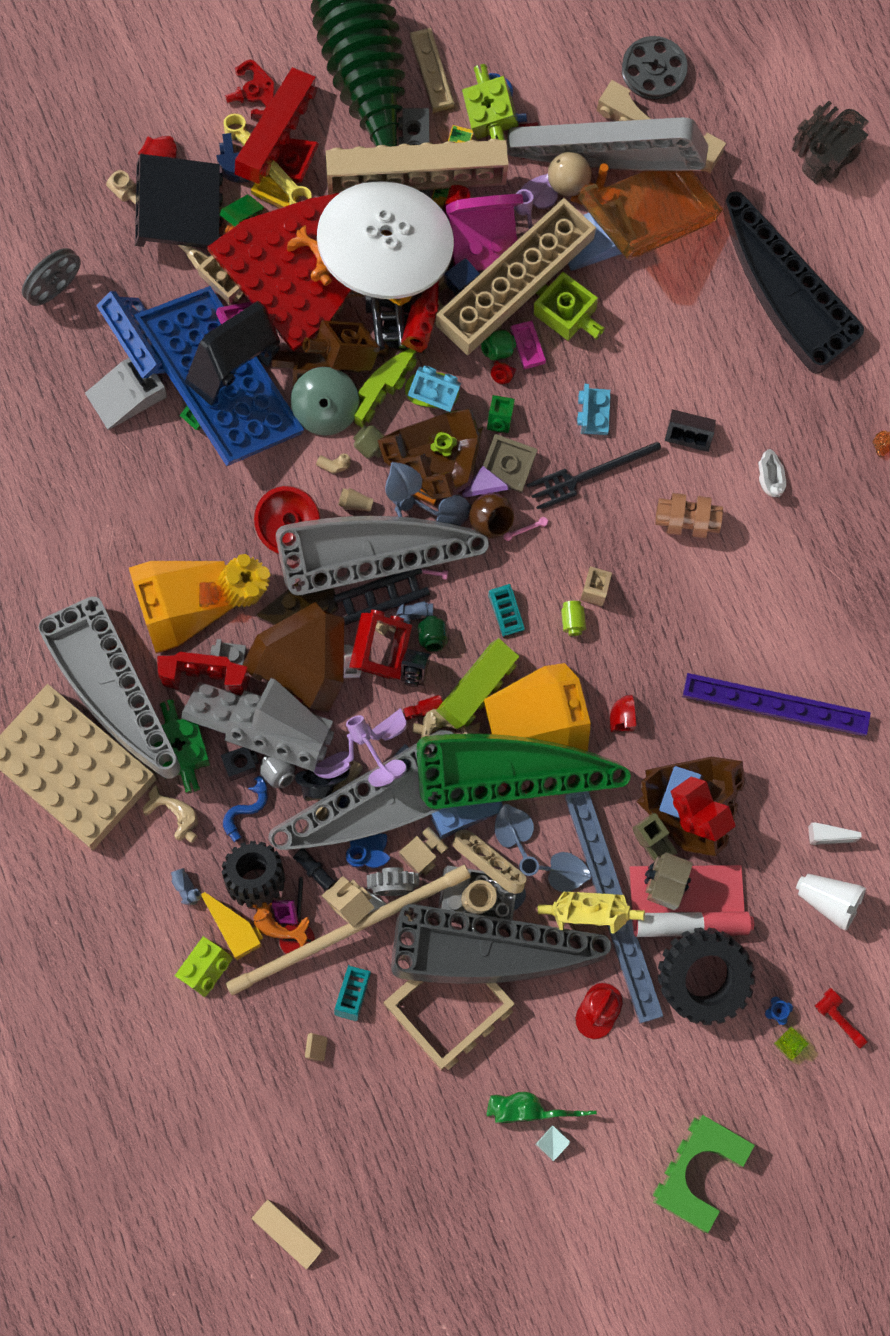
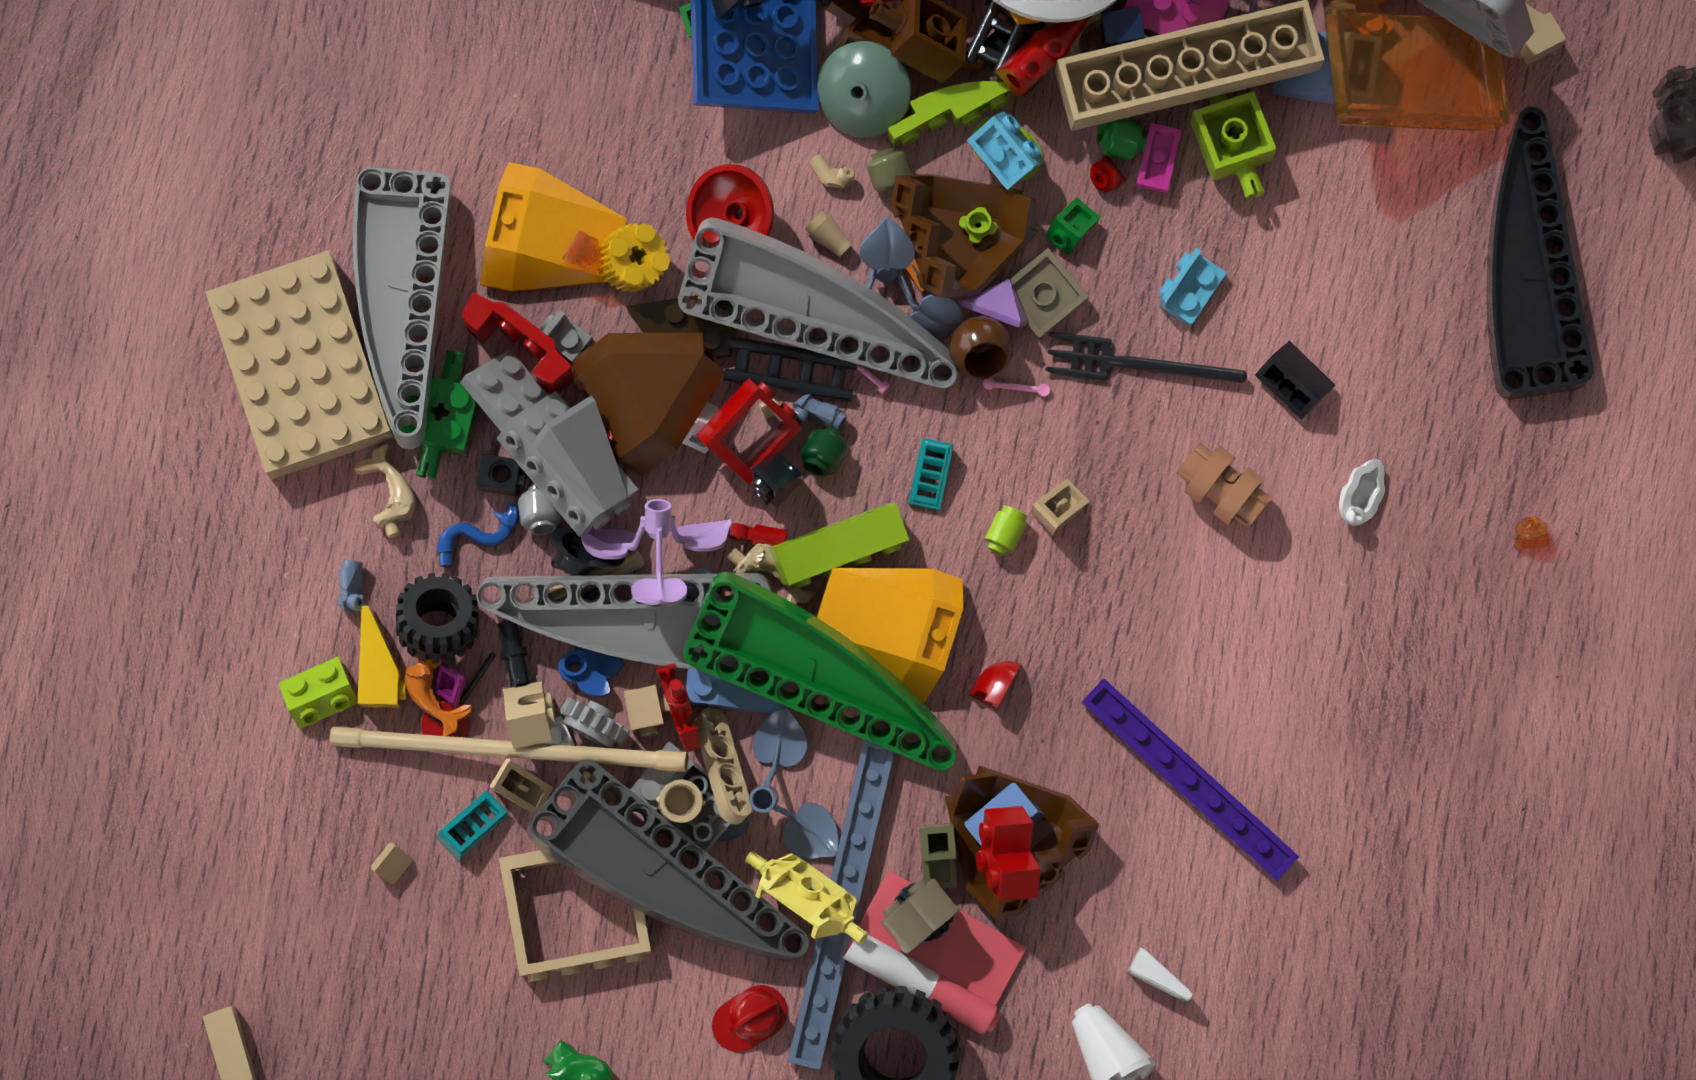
camera: 35 degrees right, 5 degrees up
(370, 950) = (521, 787): none -> tan slope
(441, 840) = (680, 707): none -> red piece

